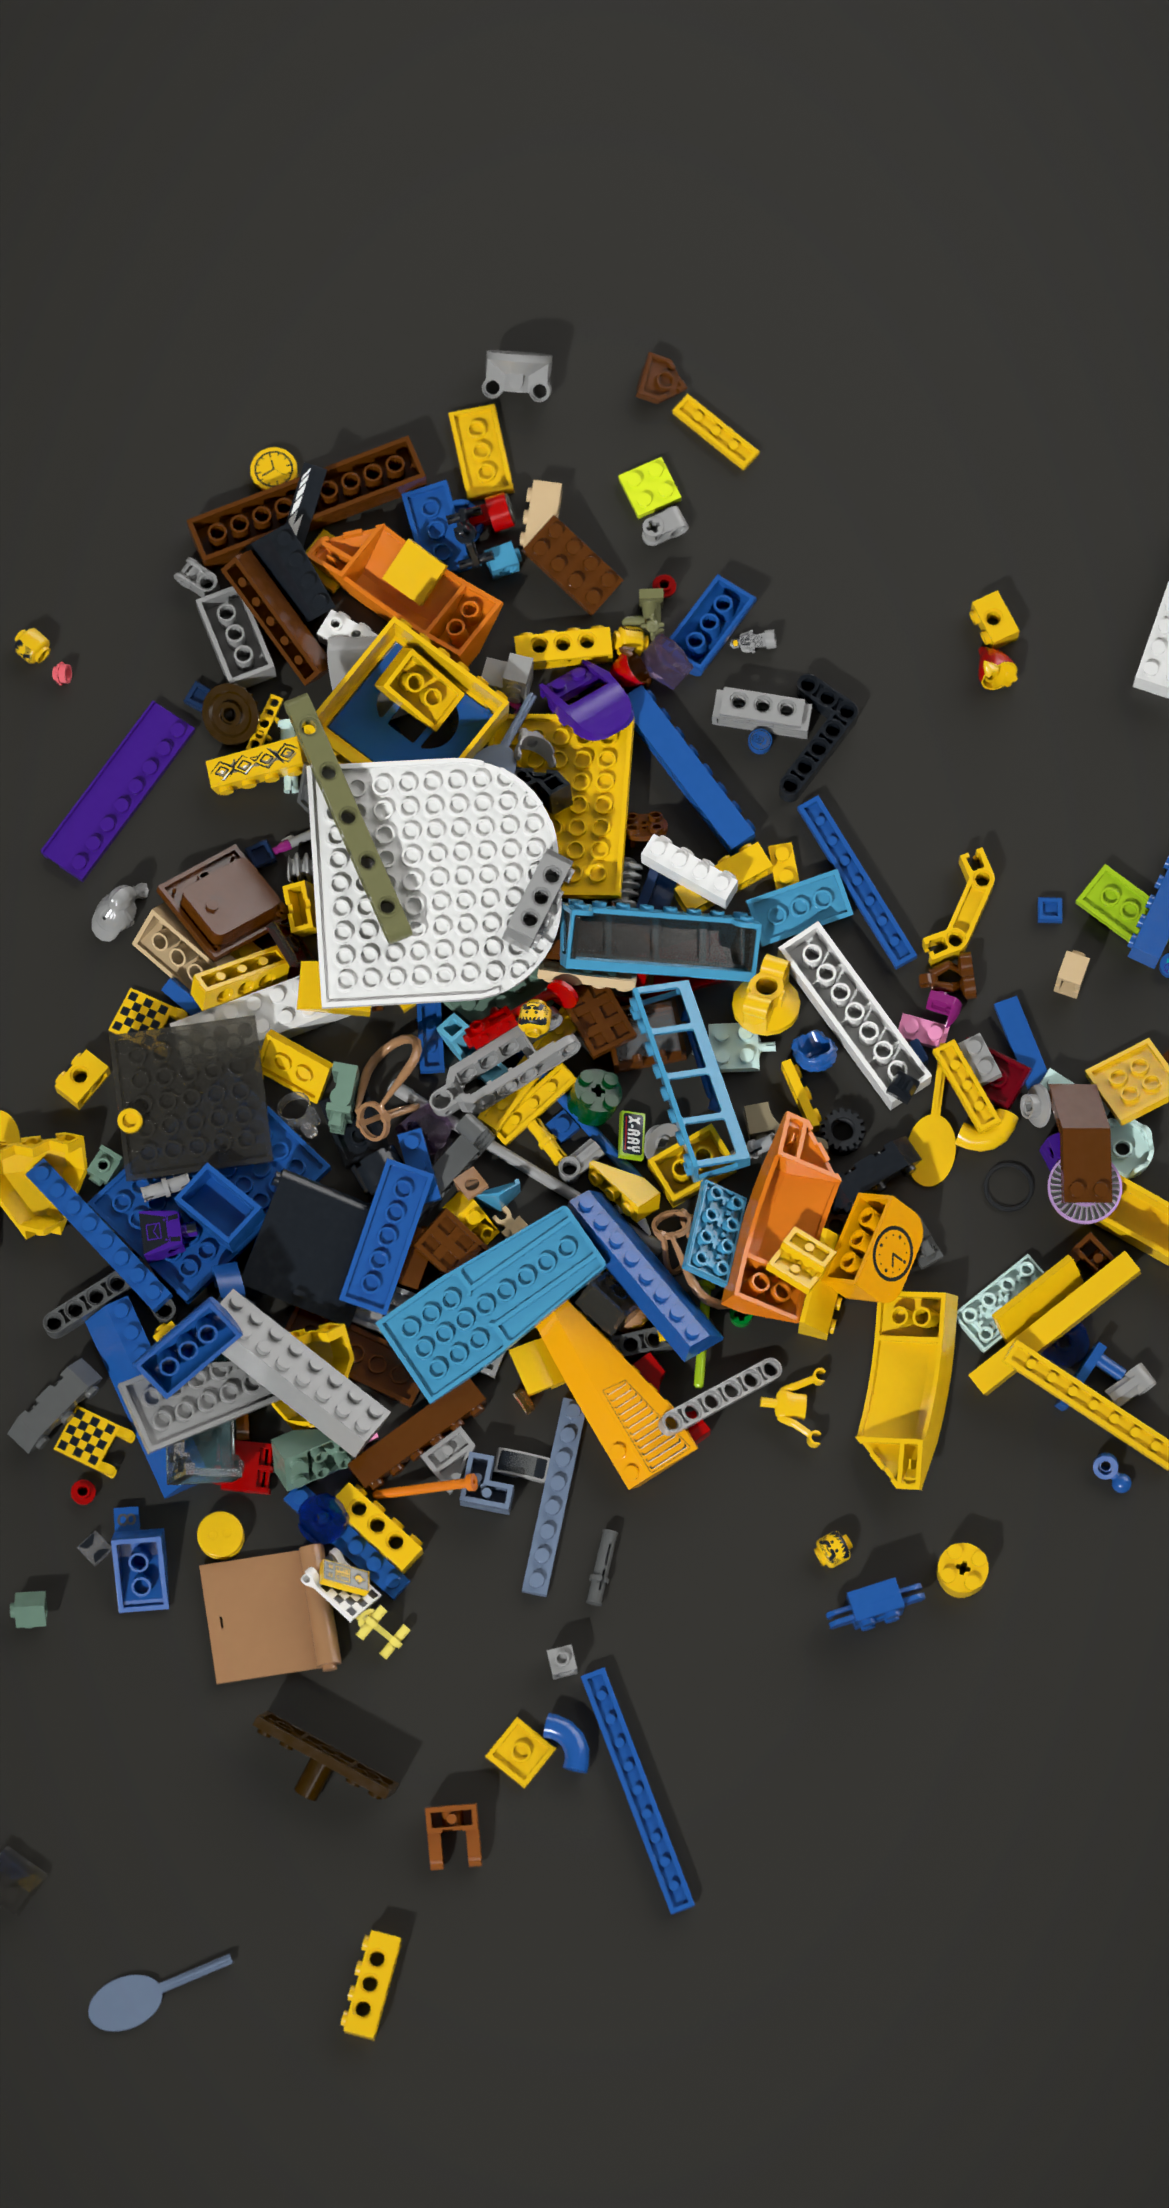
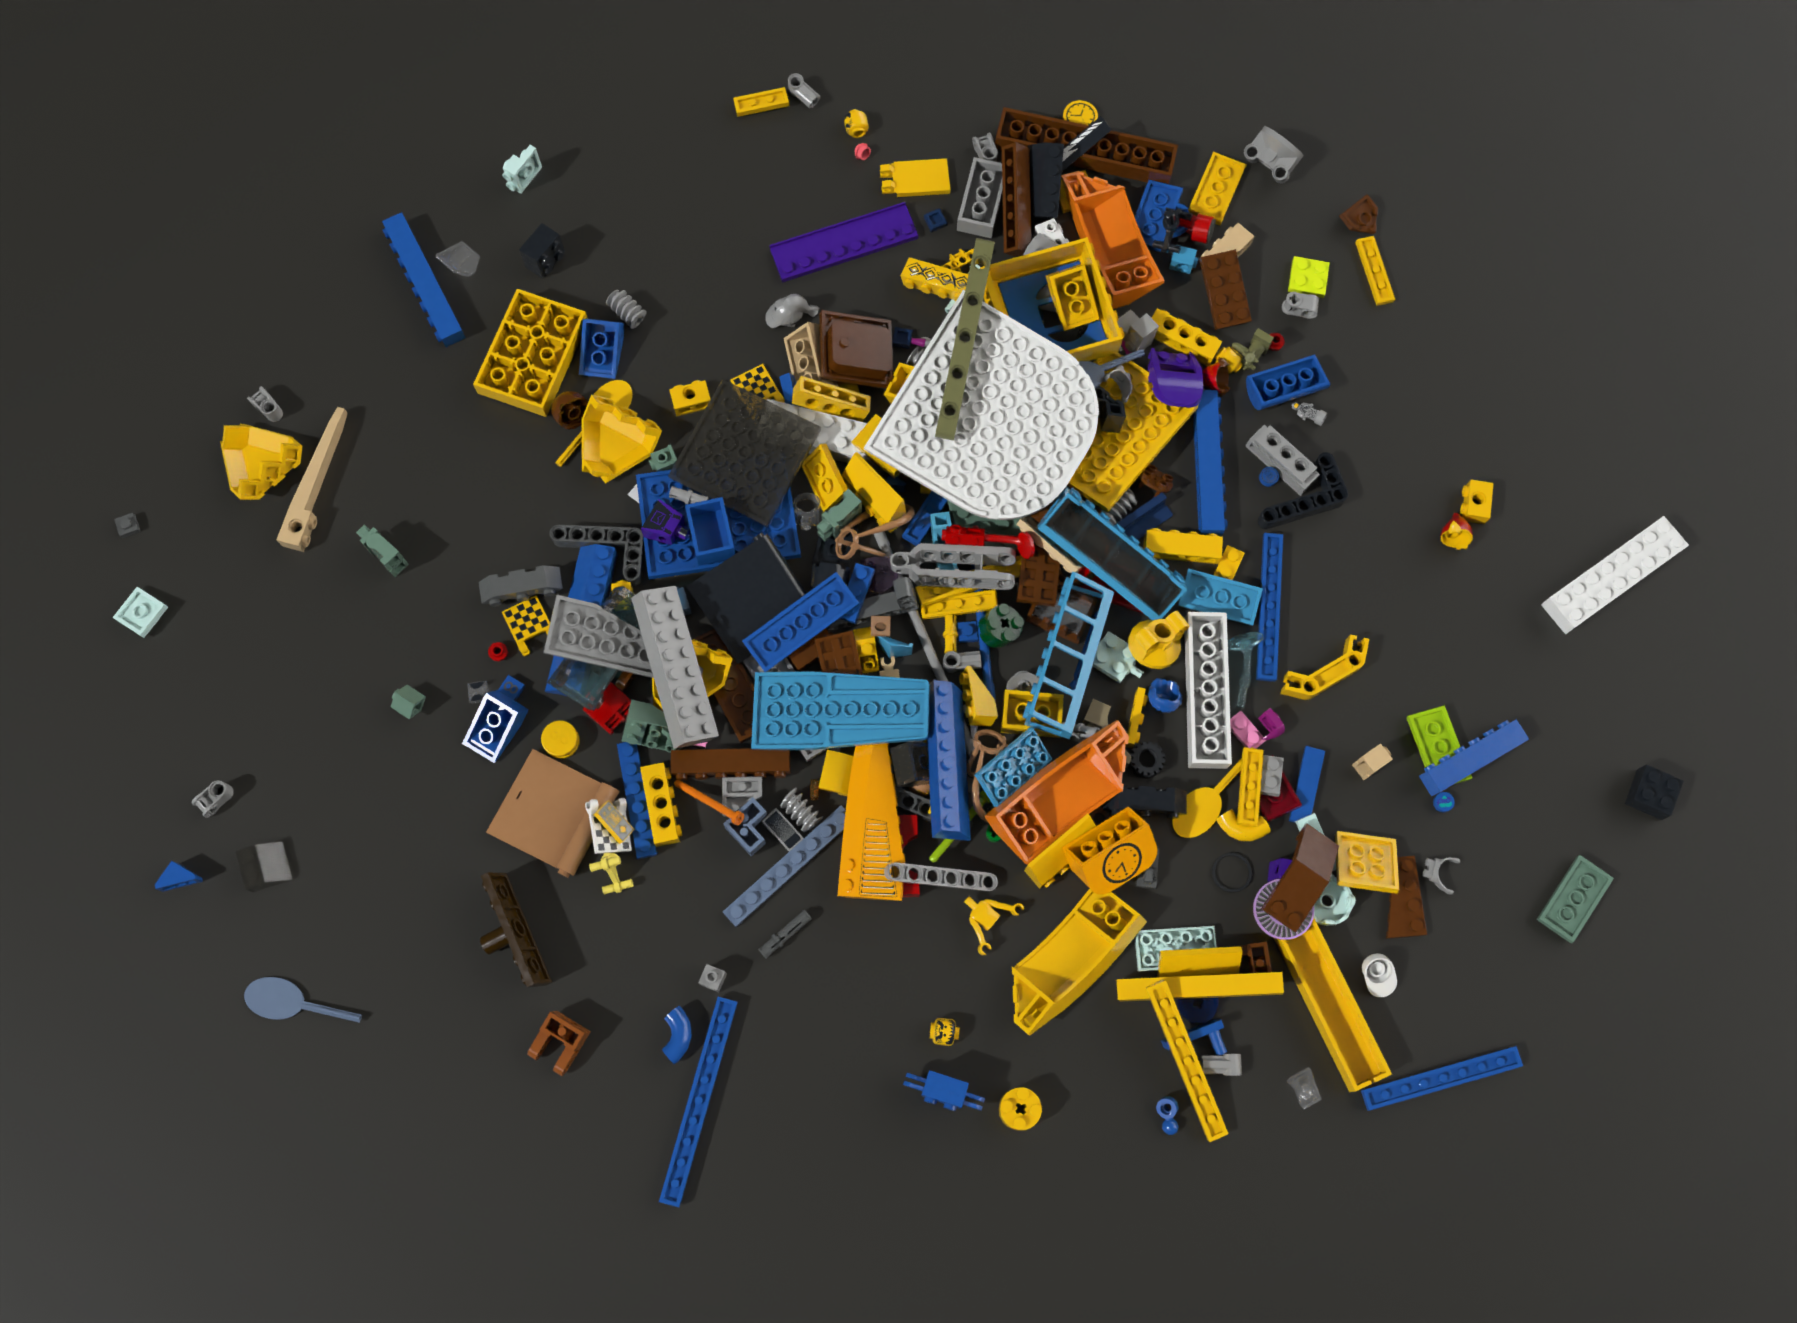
camera: 30 degrees right, 0 degrees up
(99, 1235) = (626, 499): blue plate -> none
(130, 1120) = (696, 440): yellow tile -> none
(144, 662) = (916, 178): none -> yellow tile
(188, 1347) = (614, 601): blue brick -> none
(219, 717) = (945, 239): dark brown gear -> none
(226, 1278) = (681, 579): blue panel -> none
(290, 944) = (876, 400): clear smoke tile -> none
(336, 1517) = (638, 774): clear blue plate -> none
(360, 1045) = (873, 491): none -> yellow slope
(368, 2025) = (402, 1118): yellow brick -> none
(371, 1023) = (897, 484): none -> blue slope
(415, 572) = (1122, 229): yellow tile -> none
(517, 931) = (1074, 454): light grey brick -> none
(520, 1752) = (643, 1018): yellow tile -> none
(526, 1432) = (800, 811): none -> light grey piece
(534, 1018) = (996, 548): yellow head -> none
(631, 1135) = (1007, 667): tile -> none
(666, 661) = (1243, 386): clear purple slope -> none
(689, 870) = (1164, 524): white brick -> none
(801, 1260) = (1057, 824): yellow slope -> none
(862, 942) = (1245, 645): none -> clear light blue dish
(903, 1087) = (1206, 757): black tile -> none
(919, 1050) = (1234, 742): dark blue tile -> none
(965, 970) = (1302, 709): reddish brown piece -> none
(1036, 1105) = (1288, 832): light grey piece -> none
(1049, 910) = (1385, 710): blue tile -> none

